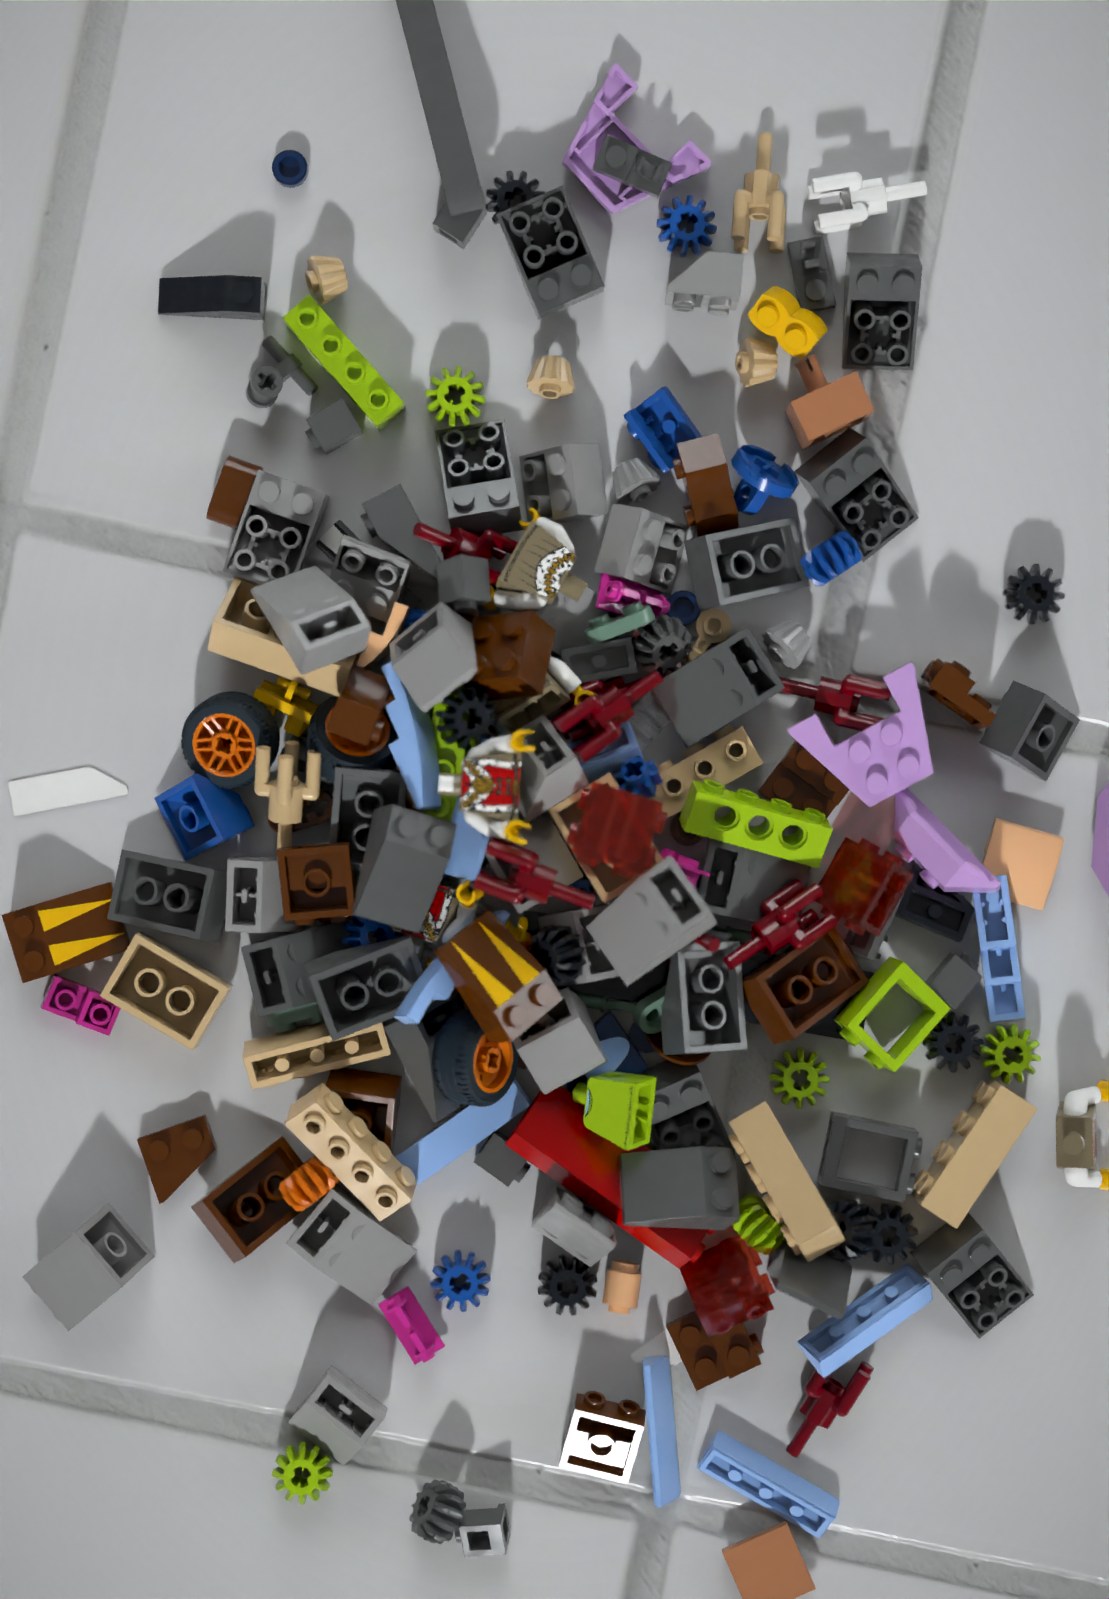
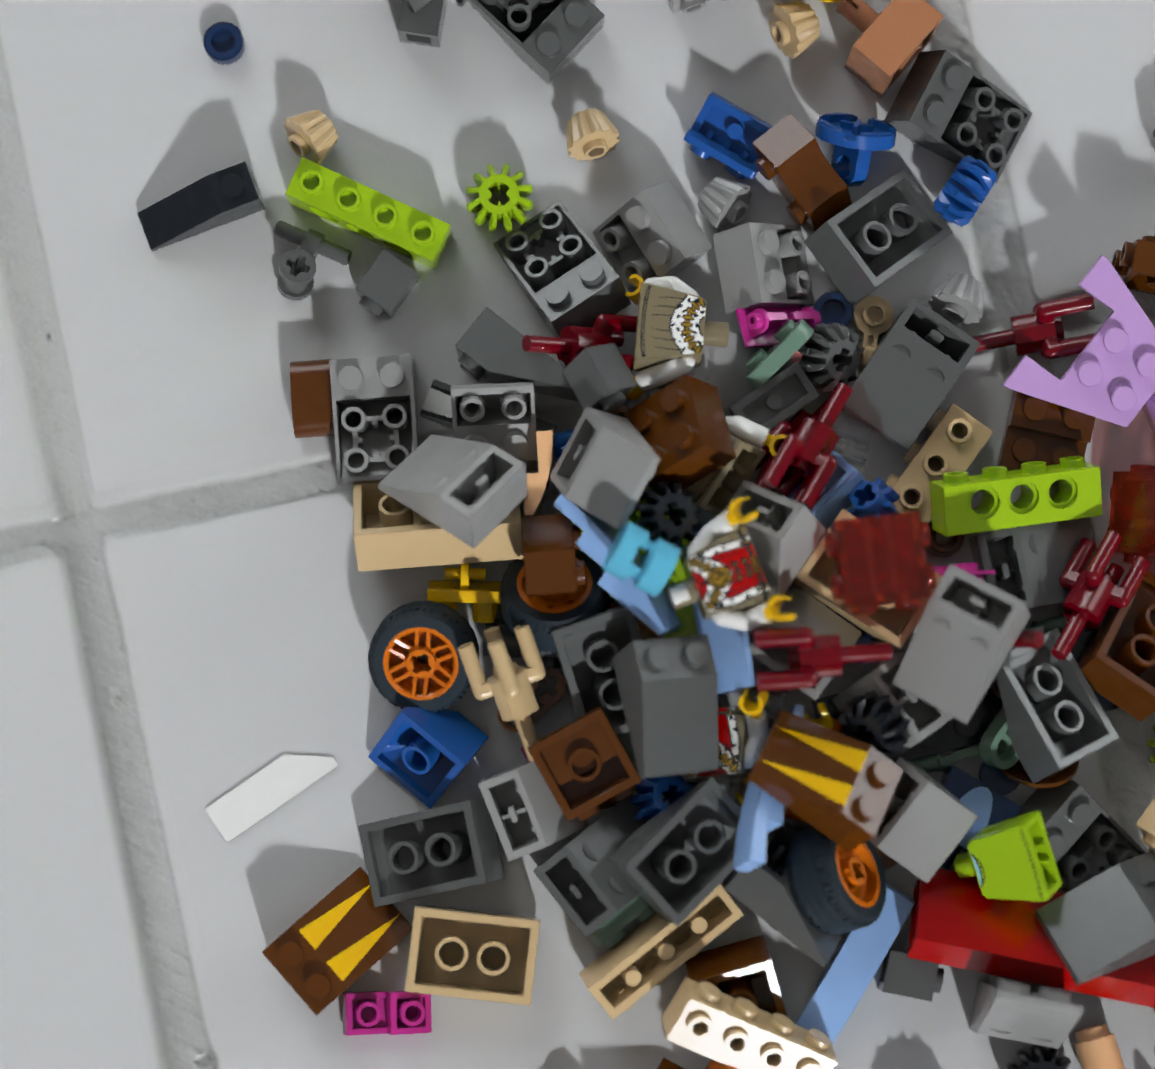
camera: 25 degrees left, 5 degrees down
(436, 752) = (654, 566): none -> medium azure wheel

